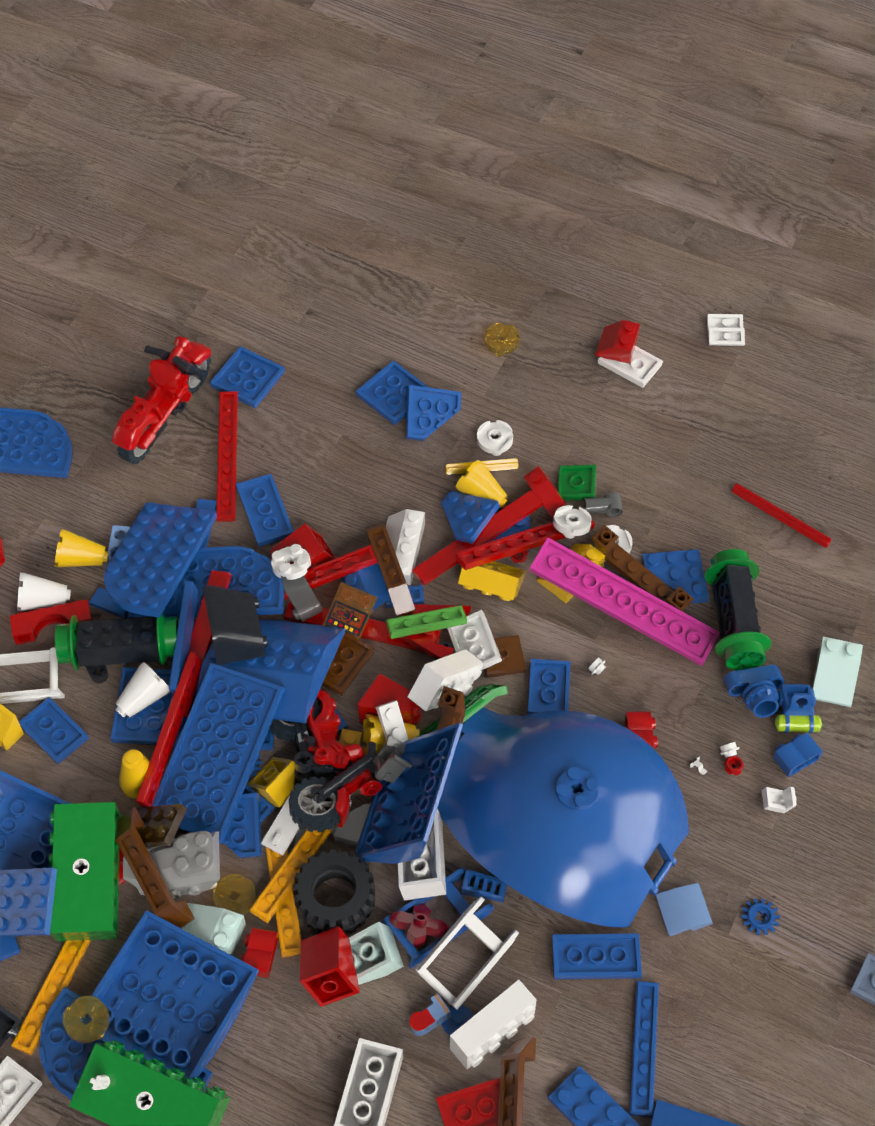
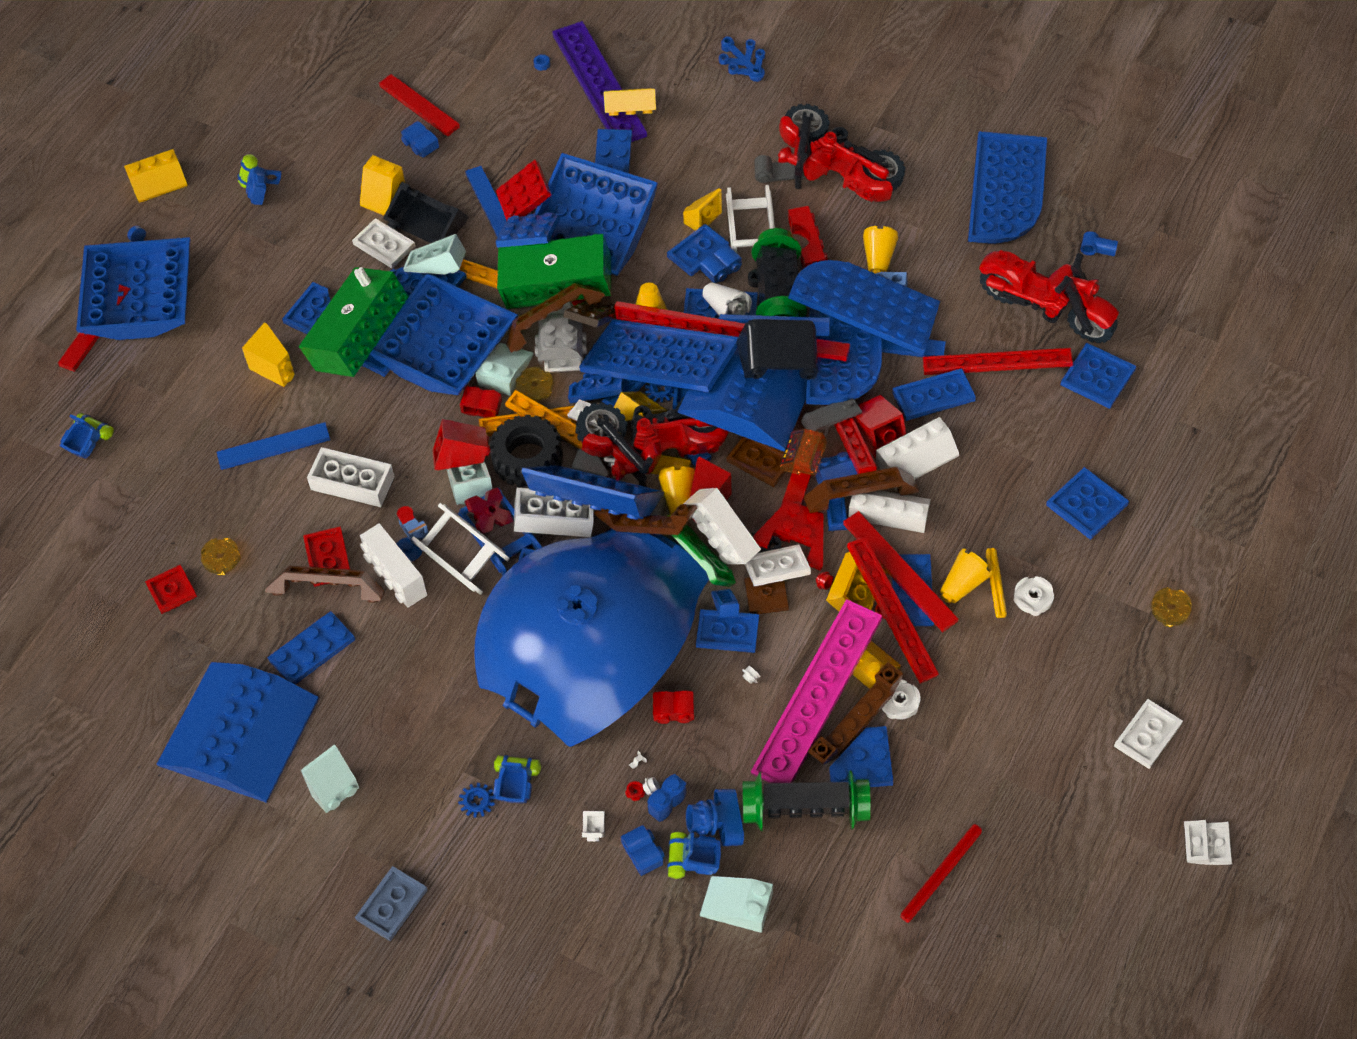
camera: 95 degrees right, 0 degrees up
(40, 593) = (834, 224): white cone -> none
(41, 1021) = (437, 258): none -> light aqua slope
(78, 705) = (721, 264): none -> blue brick
(87, 370) = (1094, 244): none -> blue piece
(93, 1030) = (430, 286): clear yellow plate -> none
(295, 554) = (860, 395): white plate -> none
(334, 522) = (919, 450): none -> white slope
(389, 760) = (636, 477): dark grey piece -> none
(392, 721) = (678, 483): white plate -> none
(426, 621) = (796, 520): bright green tile -> none
(429, 410) = (1062, 532): blue plate -> none
(468, 514) = (925, 561): blue plate -> none
(486, 604) = (824, 580): none -> red plate
(525, 691) = (725, 603): none -> blue slope
(545, 490) = (958, 637): red slope -> none
(572, 521) = (909, 660): white plate -> none
(577, 482) = (976, 669): green plate -> none
(596, 956) = (450, 656): blue plate -> none
(608, 505) = (947, 696): dark grey piece -> none
(618, 341) = (1168, 718): red slope -> none
(644, 1049) = (365, 690): blue tile -> none
(684, 909) = (488, 731): medium blue slope -> none
(737, 875) = (514, 778): none -> blue piece
(745, 735) = (664, 799): none -> blue brick
(769, 1062) = (329, 779): none -> light aqua slope

